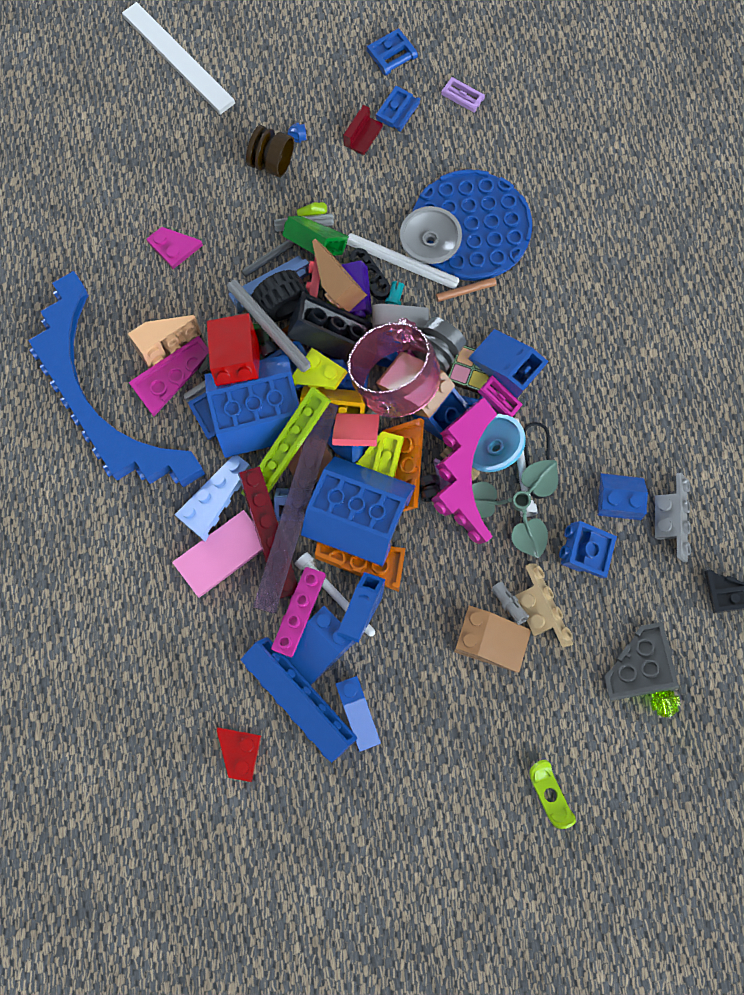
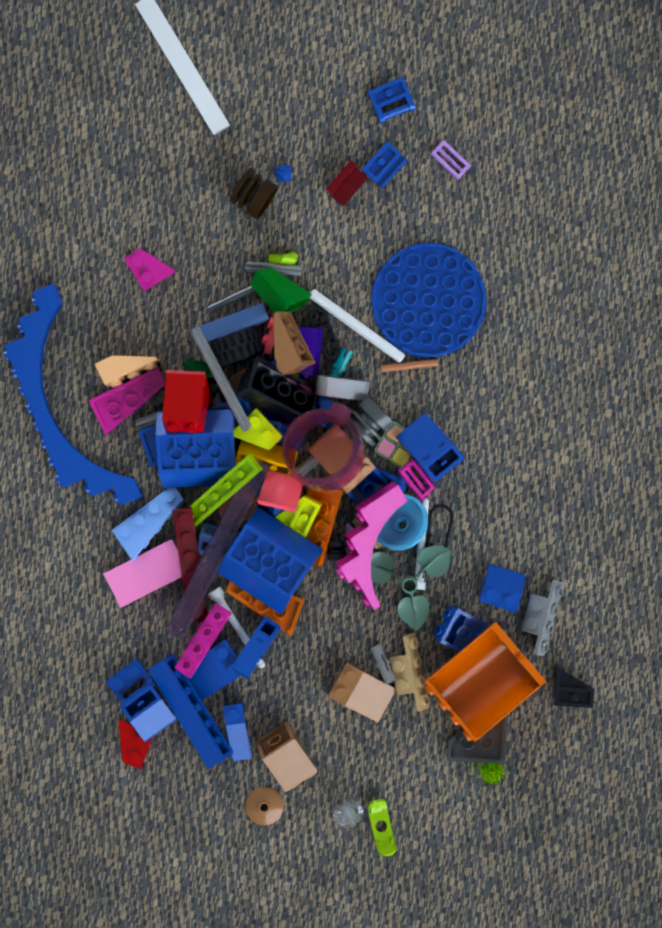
camera: 10 degrees right, 15 degrees up
(218, 677) = (128, 677): none -> blue plate
(248, 709) = (148, 713): none -> slope
(403, 811) = (266, 796): none -> medium nougat dish
(422, 732) = (286, 757): none -> slope
(434, 225) = (386, 298): light grey dish -> none
(509, 783) = (348, 813): none -> clear brick
(631, 596) = (484, 682): none -> orange cylinder

